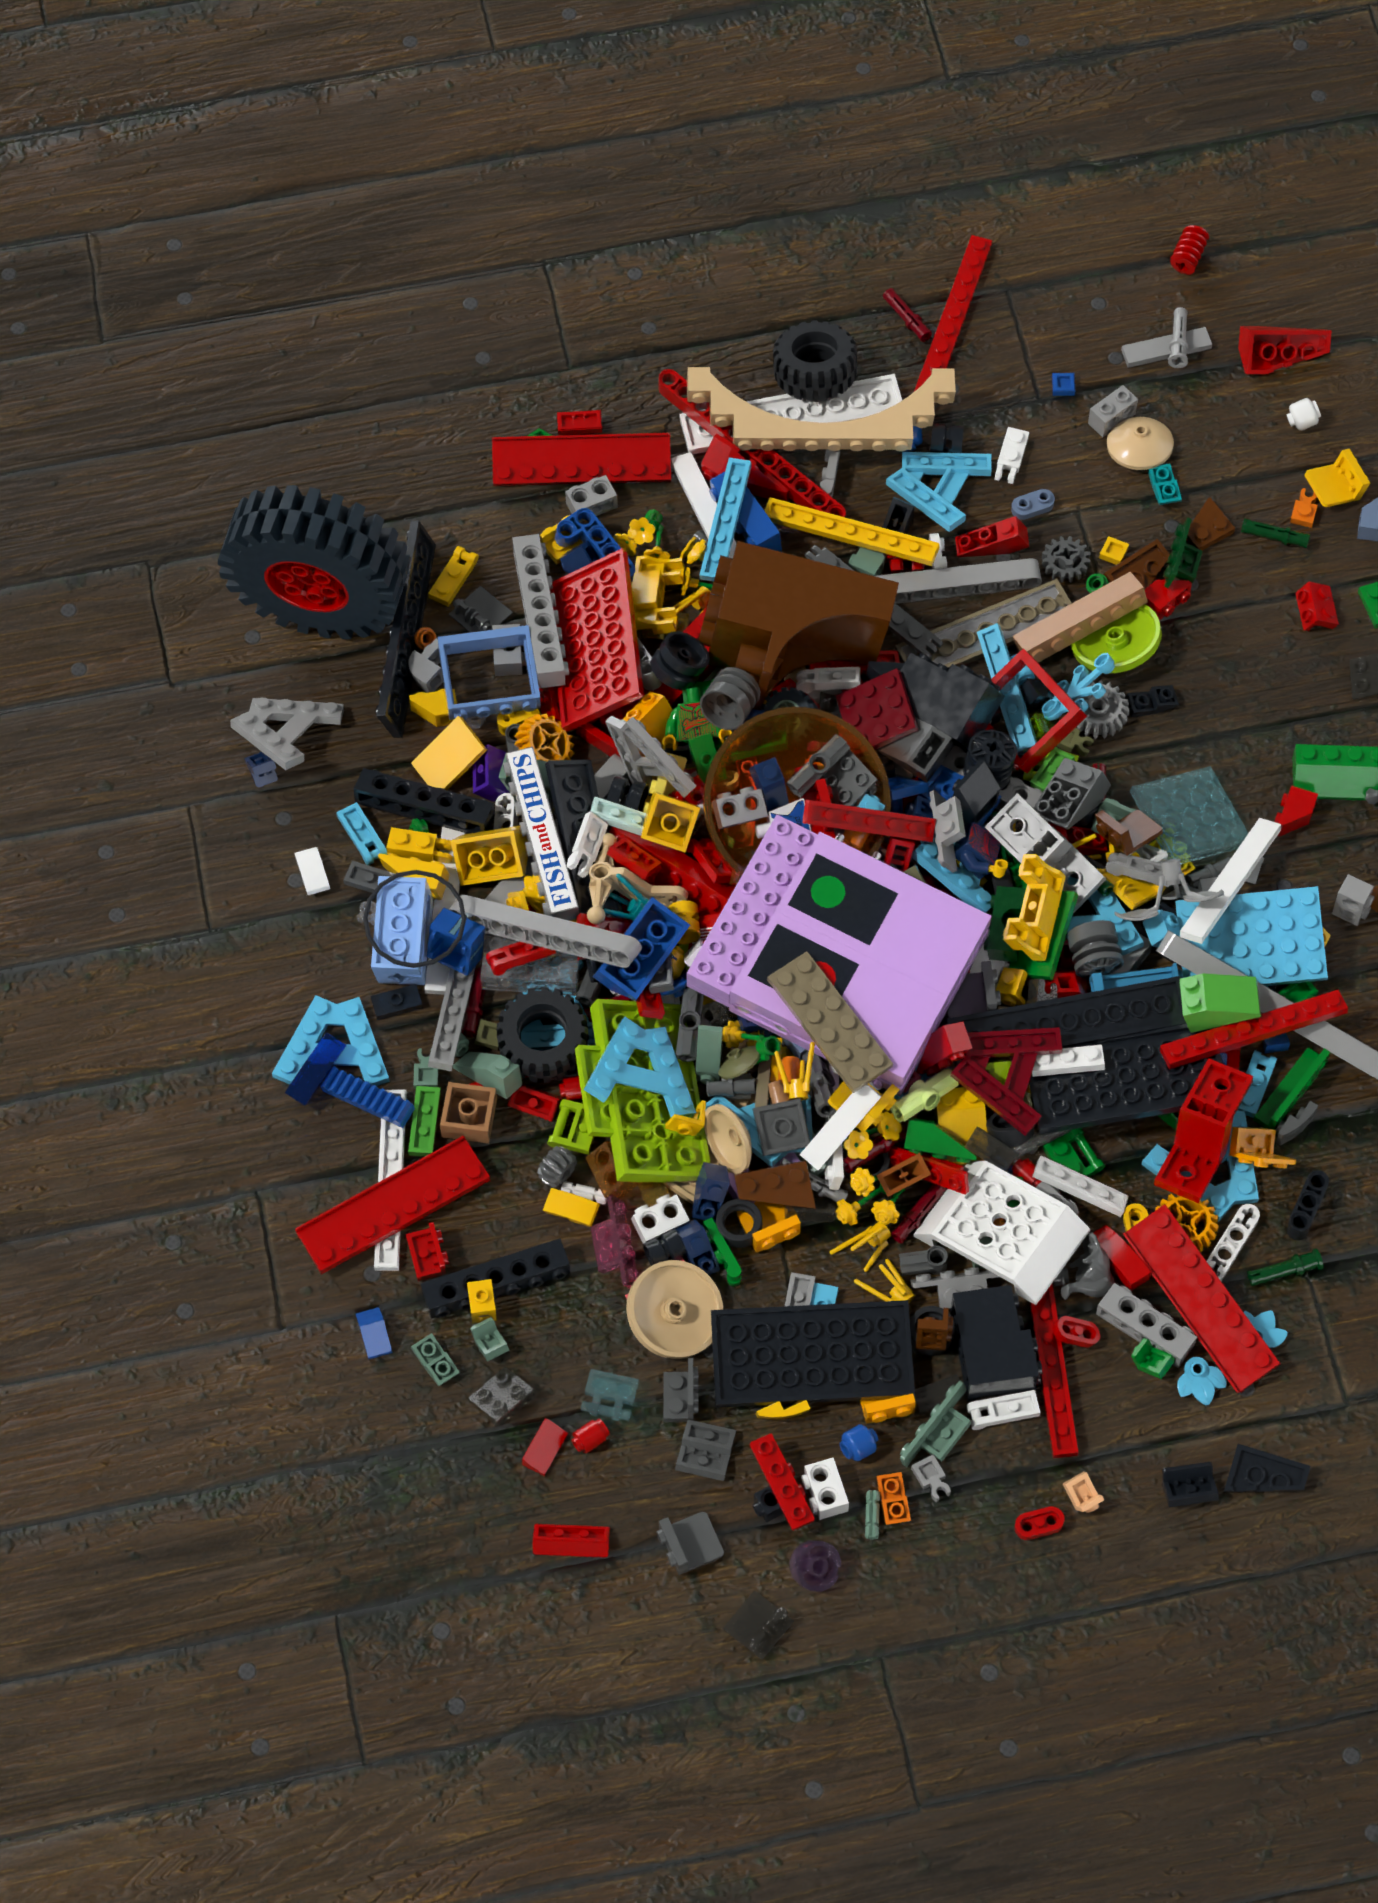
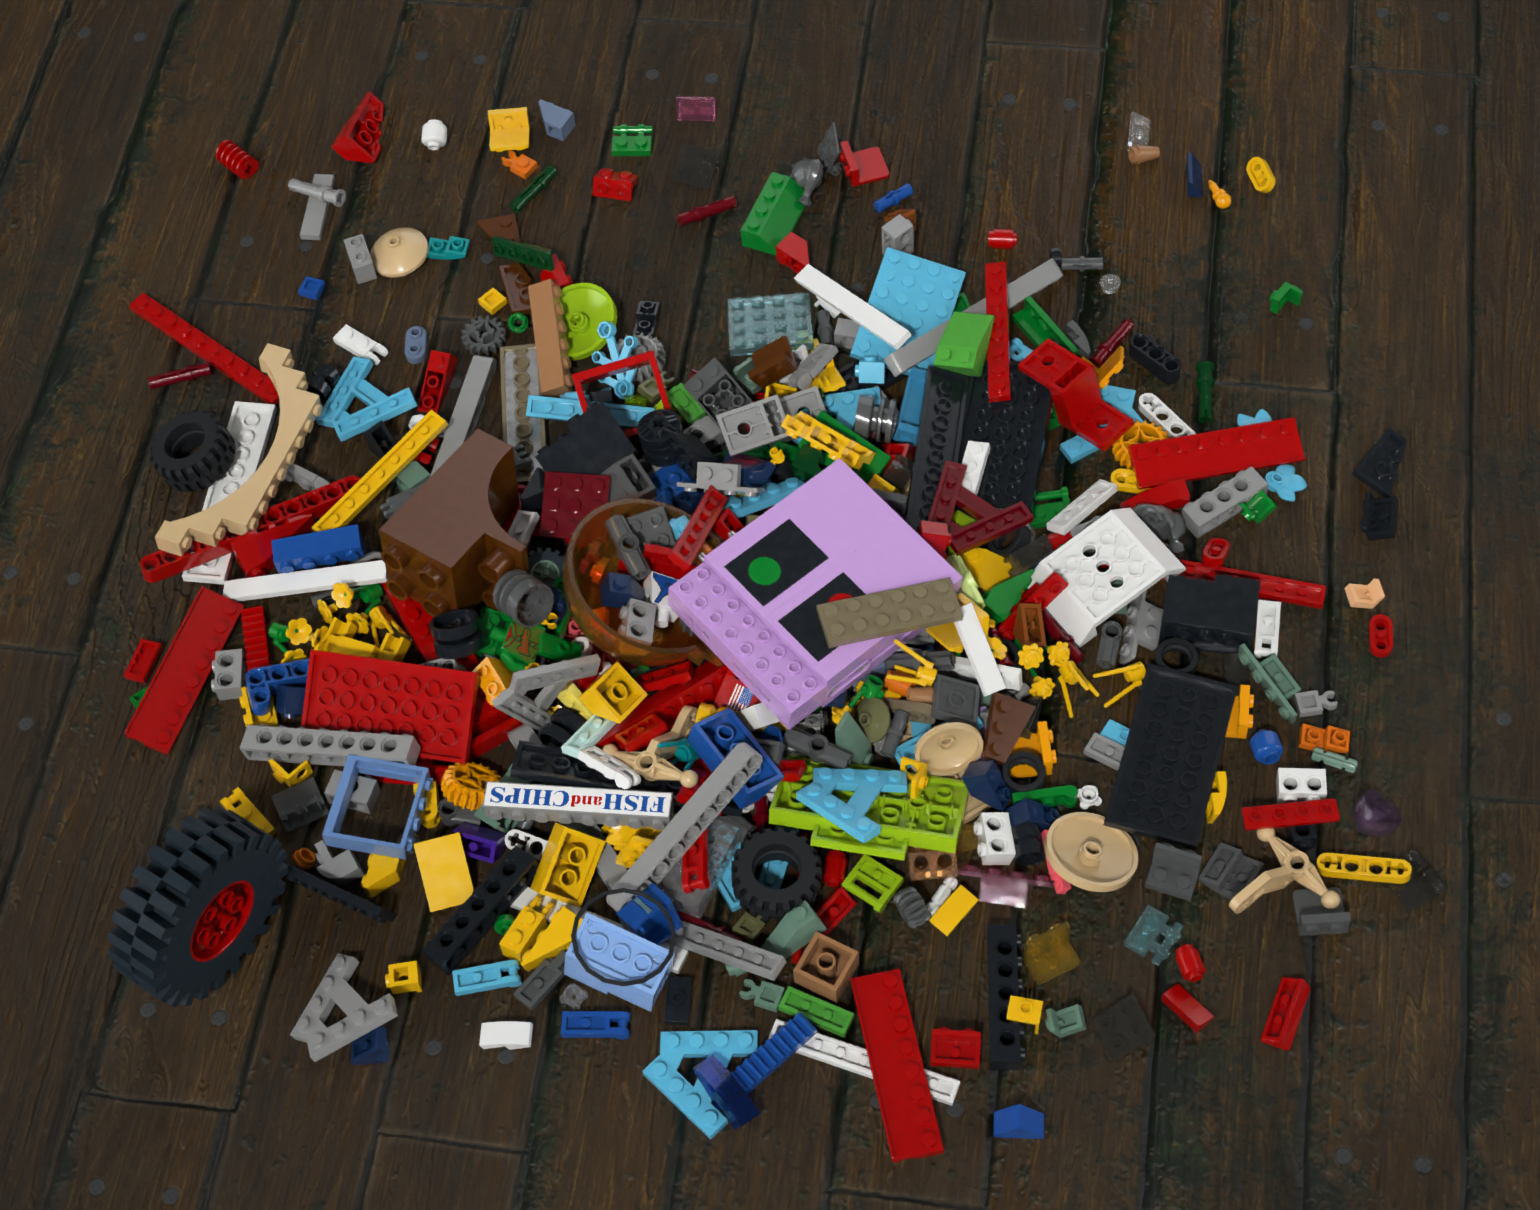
camera: 65 degrees left, 5 degrees down
(337, 767) = (400, 971): none -> yellow brick
(347, 939) = (595, 1024): none -> blue plate
(435, 1360) = (1067, 1077): sand green slope -> none
(501, 588) = (290, 779): none -> yellow bracket
(553, 1306) = (1050, 953): none -> clear yellow bracket
(636, 506) = (255, 637): none -> red gear
(721, 1517) = (1283, 876): none -> tan piece
(725, 516) = (324, 560): medium azure plate -> none
(742, 1286) = (1092, 791): none -> white plate
(754, 1571) = (1363, 872): none -> yellow beam
(934, 1333) = (1192, 642): reddish brown bracket -> none
(1172, 875) = (842, 343): light grey plant -> none
(1311, 1157) = (1107, 348): none -> dark red pin
(1312, 700) = (699, 213): none -> dark red pin

